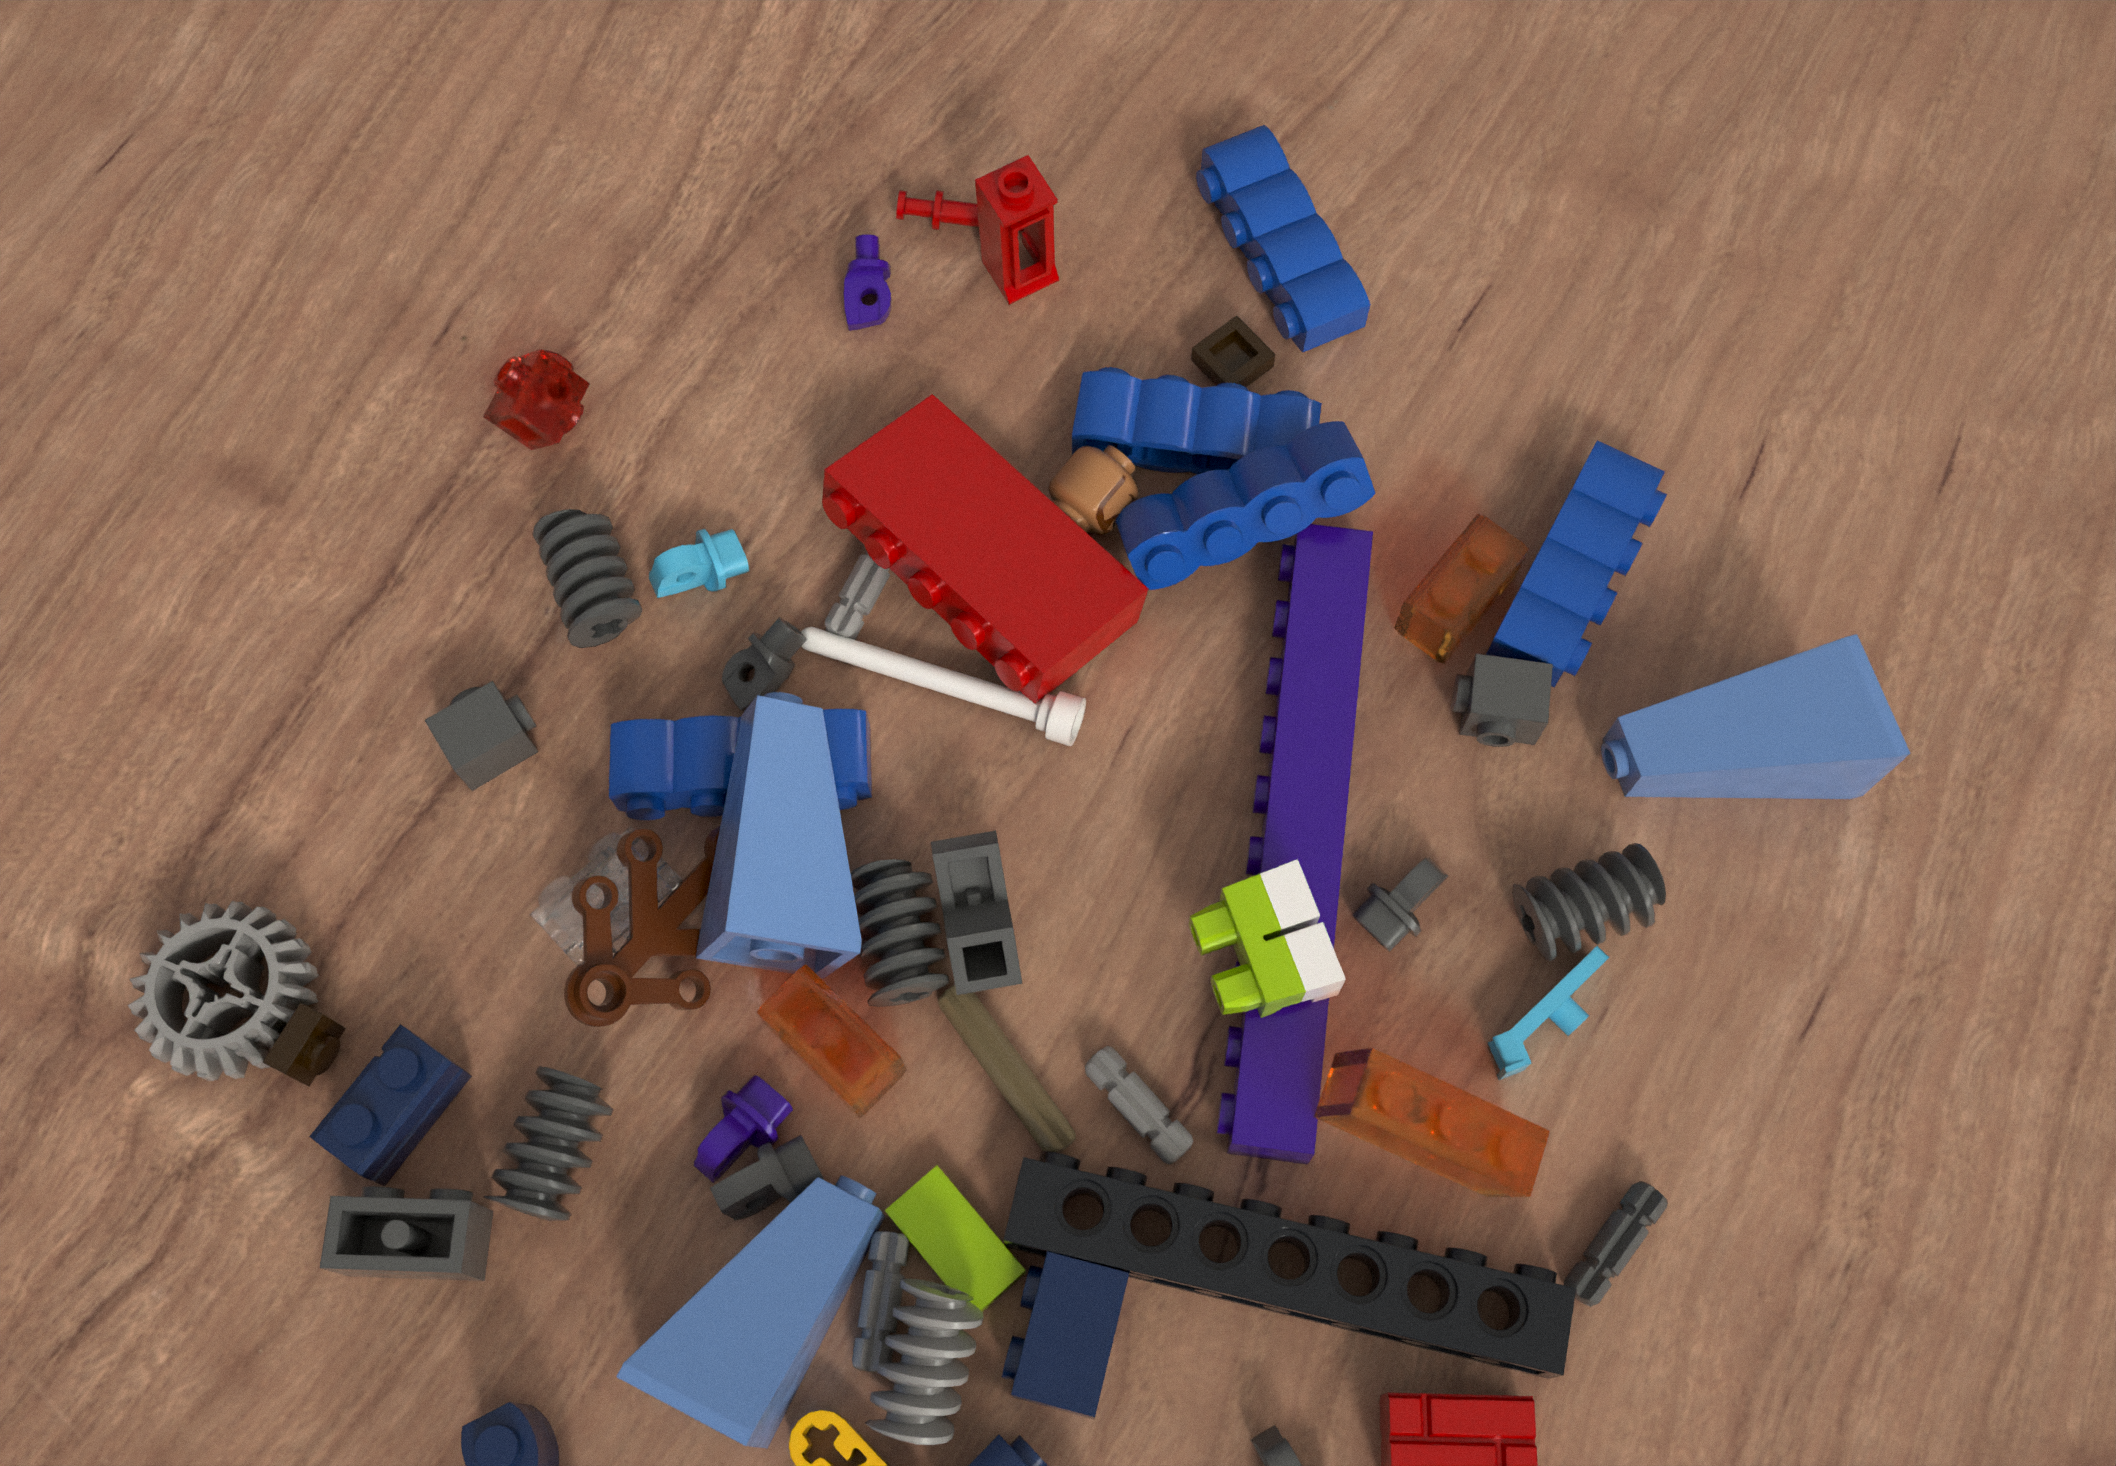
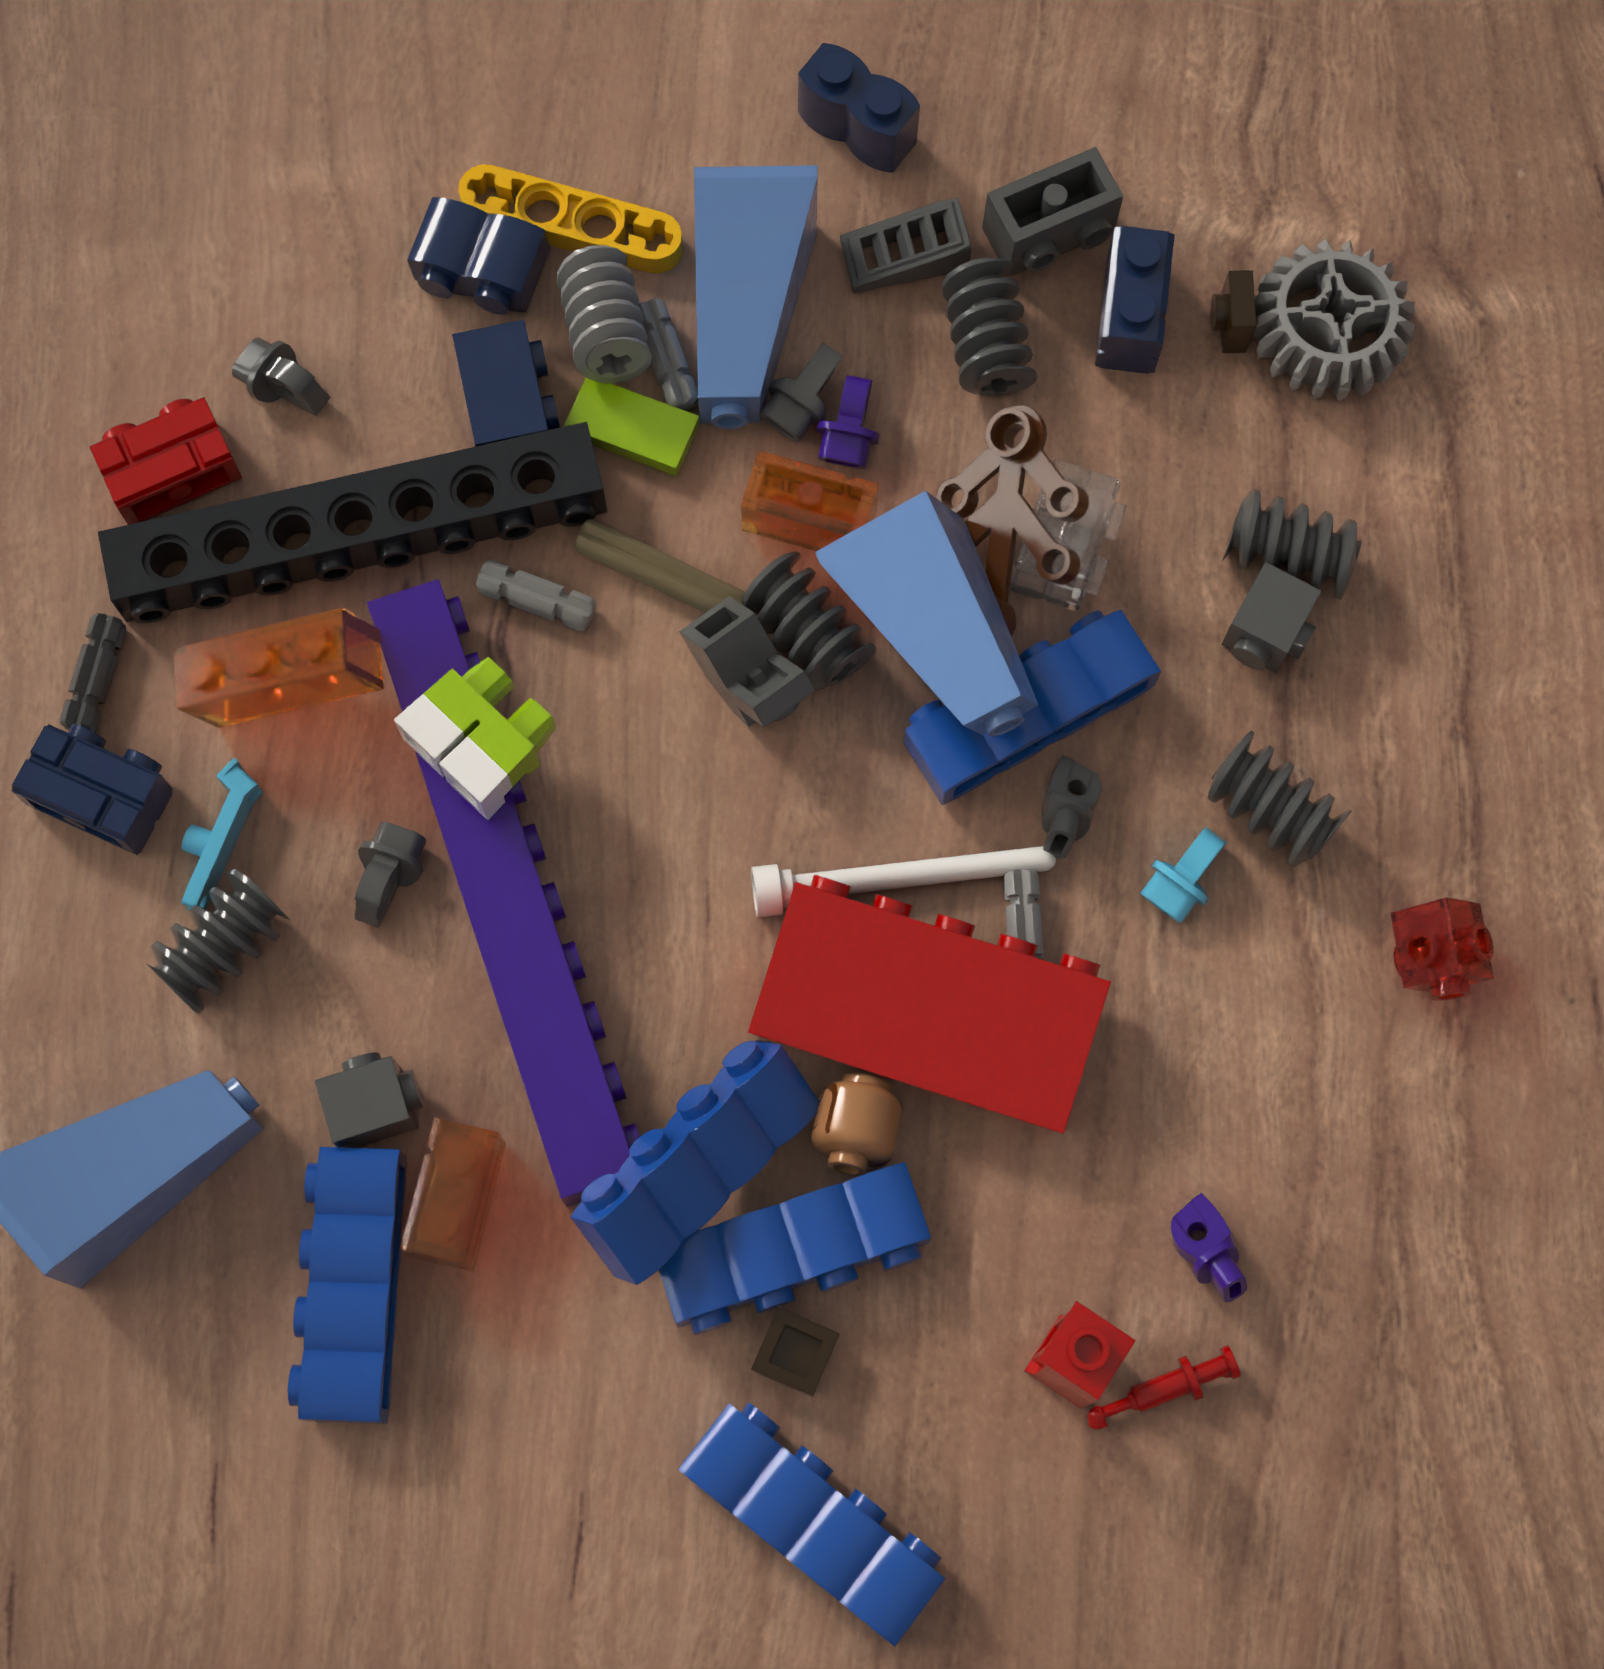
camera: 150 degrees right, 5 degrees up
(416, 790) = (1295, 541): none -> dark grey piece
(516, 1276) = (921, 222): none -> dark grey slope
(1657, 1114) = (92, 787): none -> dark blue brick

